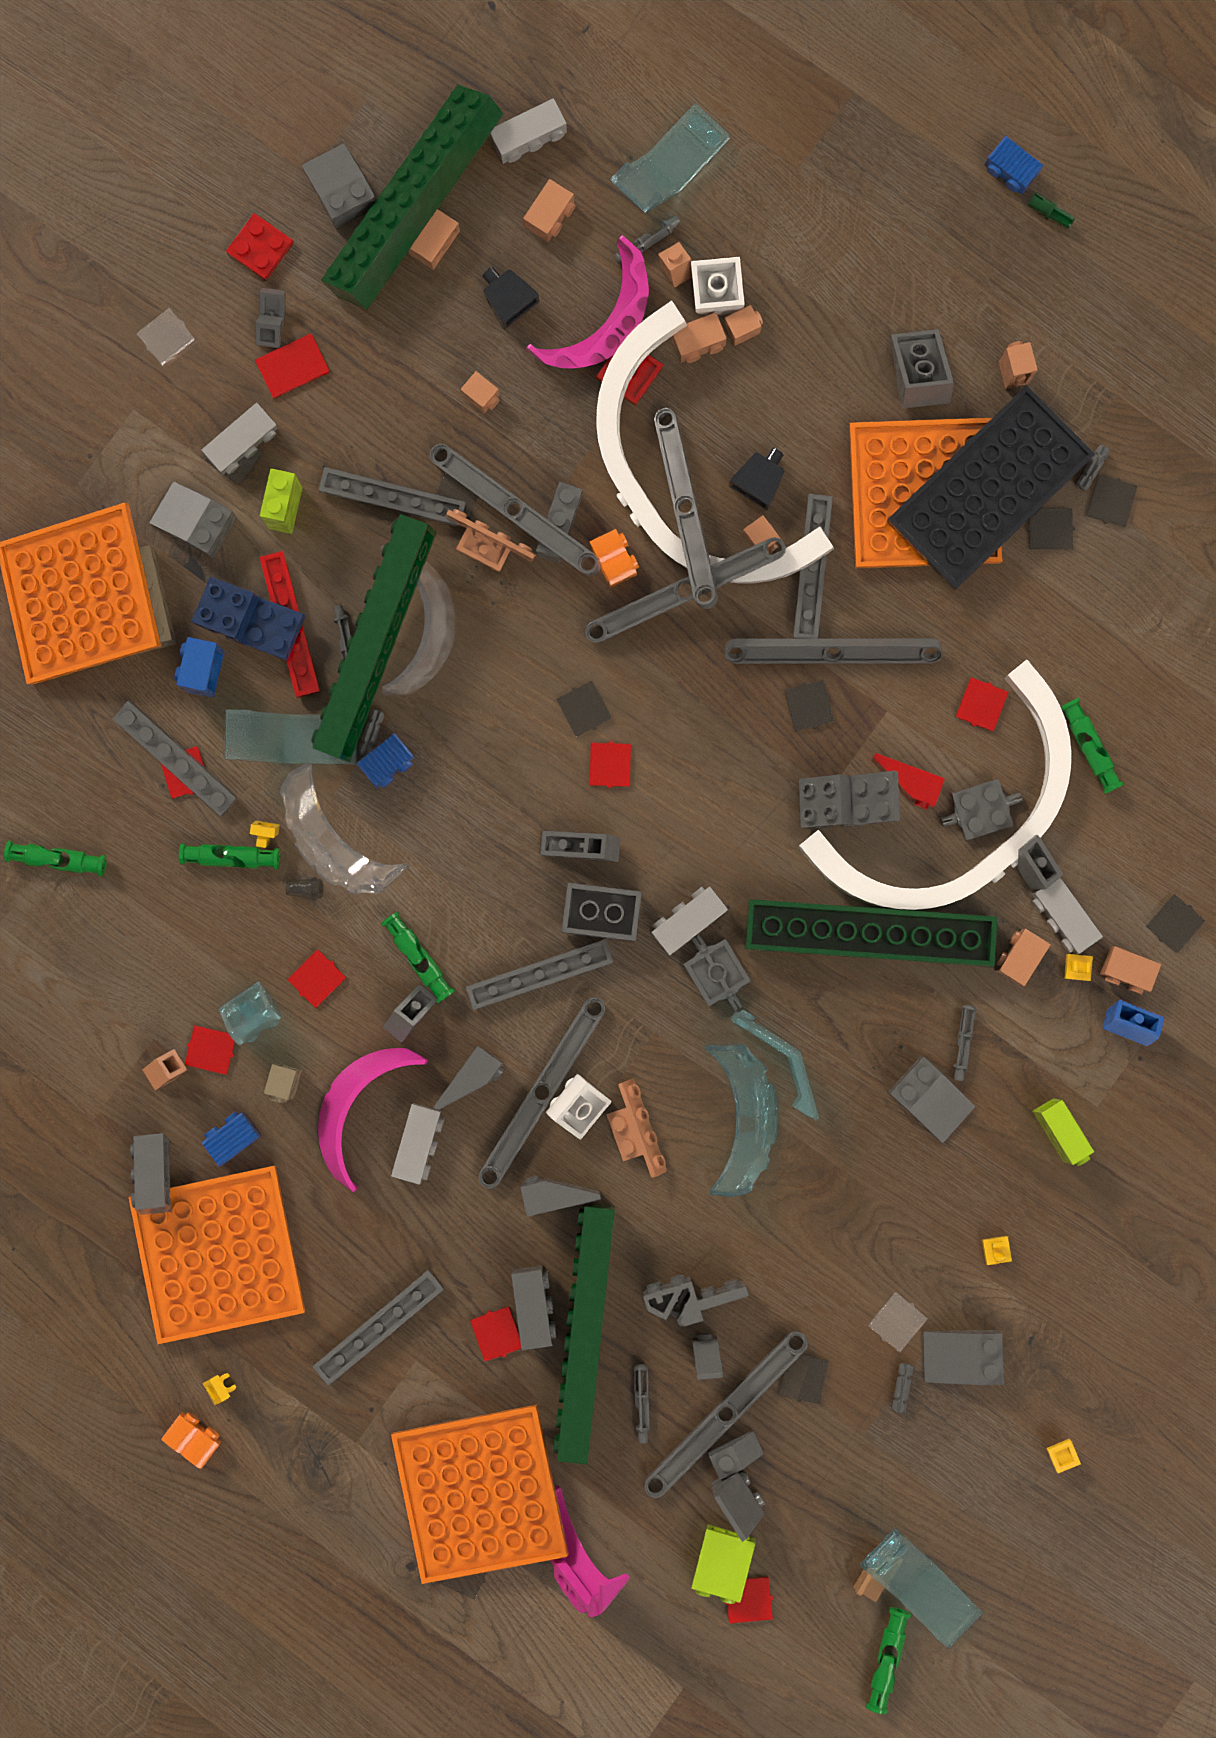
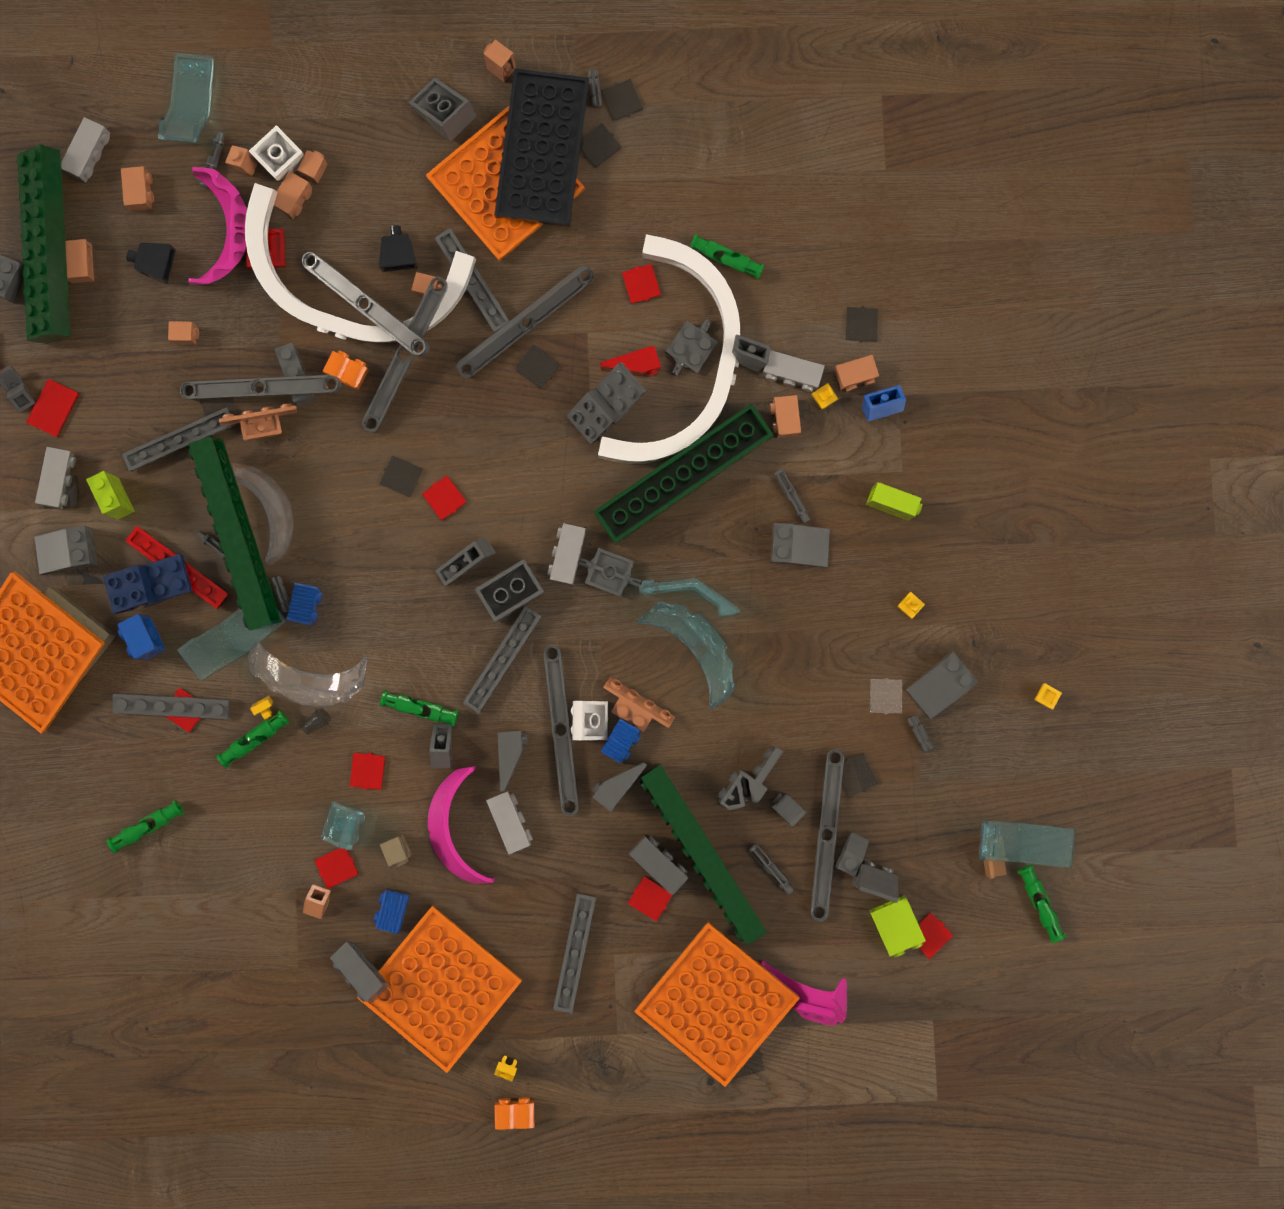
camera: 45 degrees left, 0 degrees up
(593, 1152) = (620, 741): none -> blue brick

